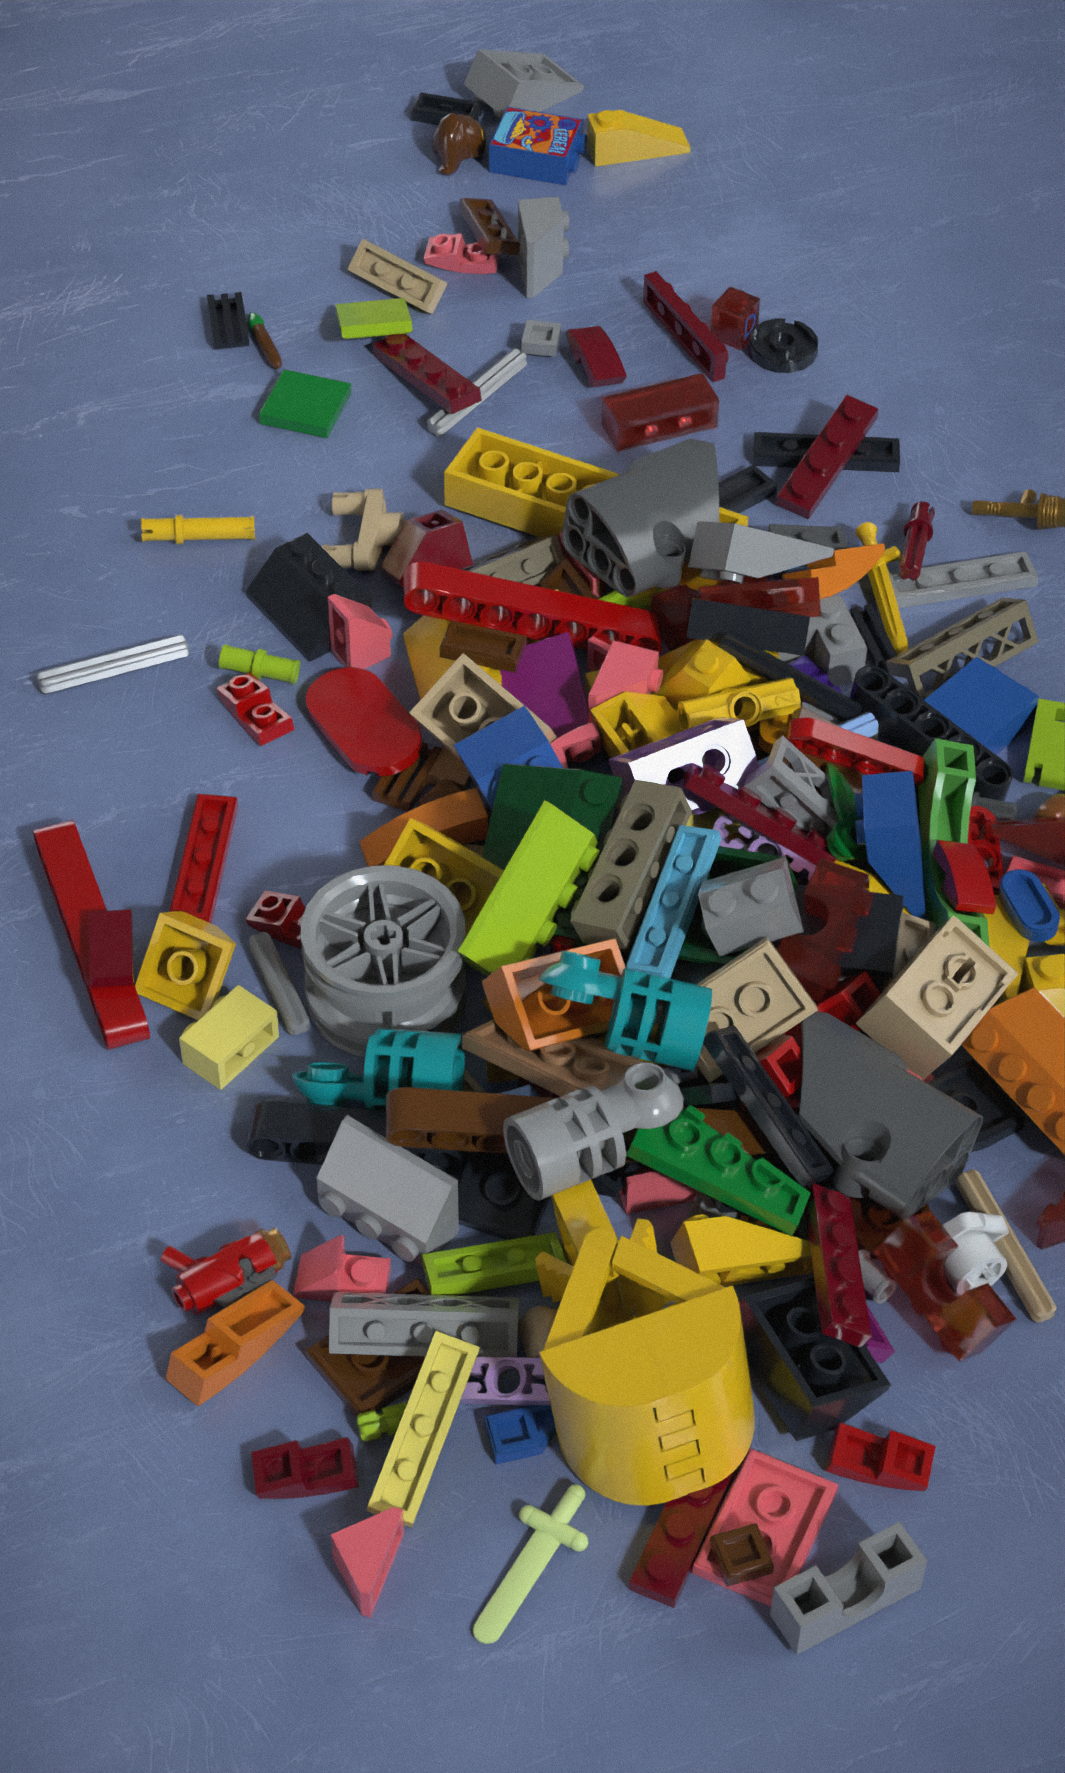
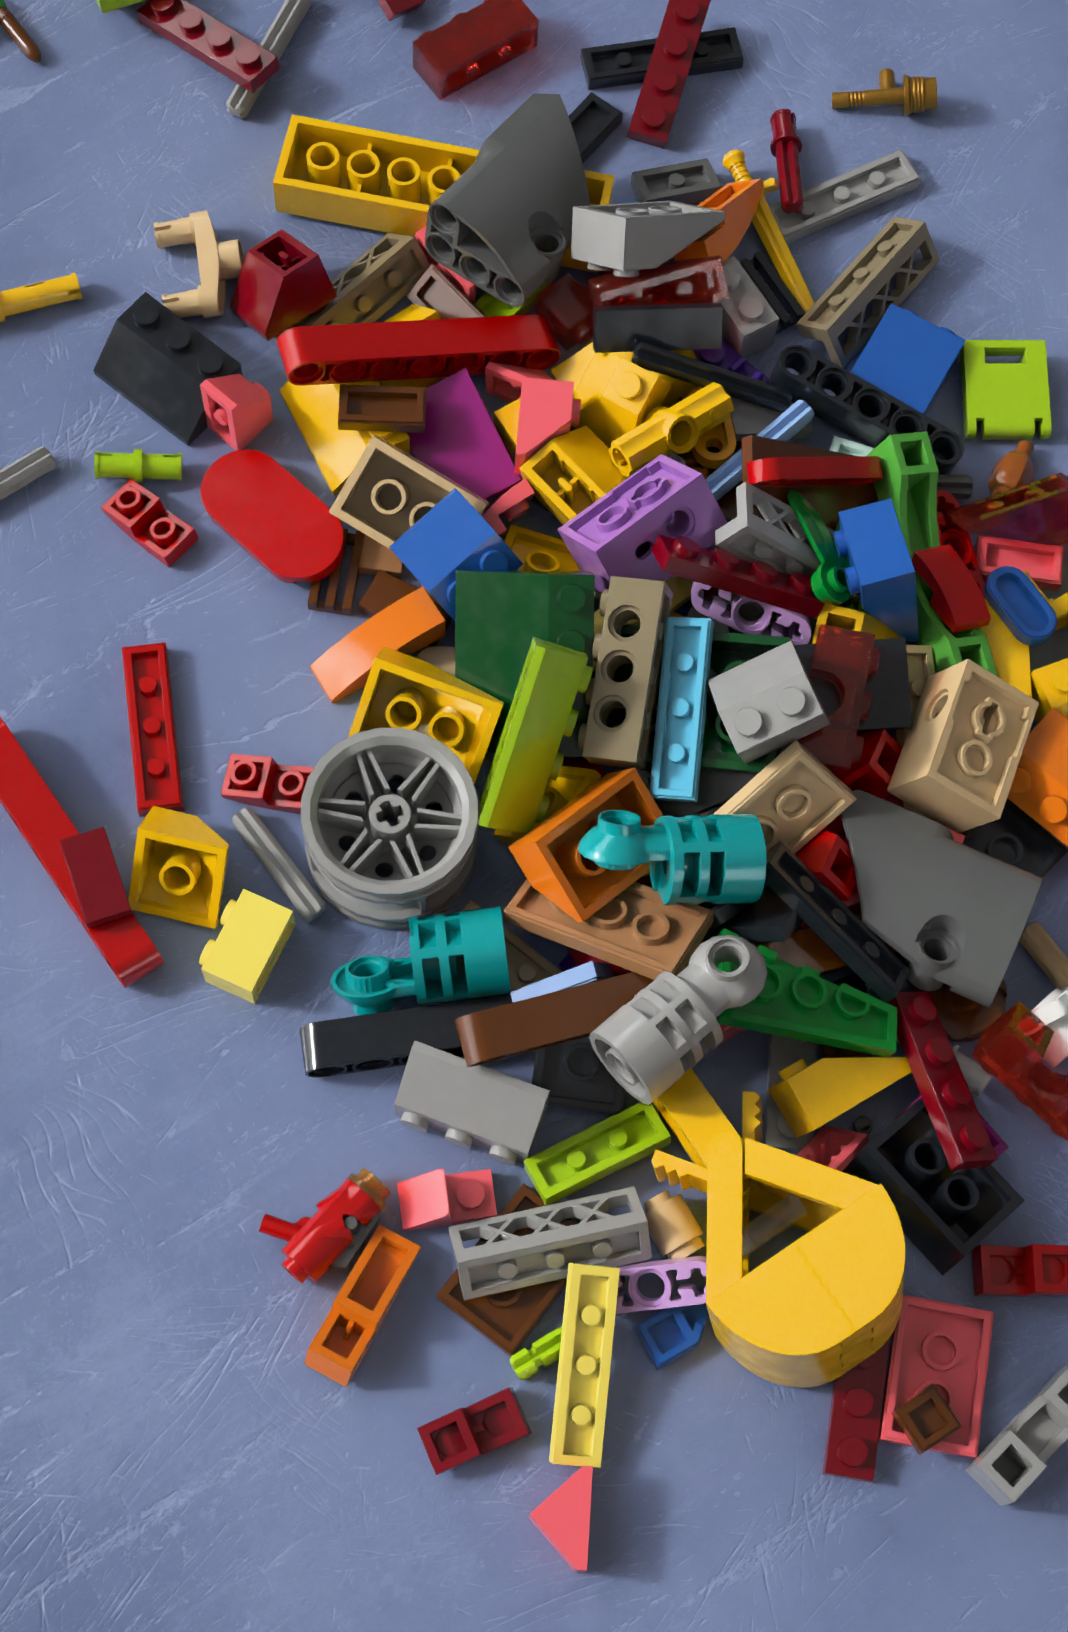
camera: 20 degrees left, 20 degrees up
(305, 403) = (84, 105): green tile -> none
(548, 1535) = (723, 1473): yellowish green sword -> none

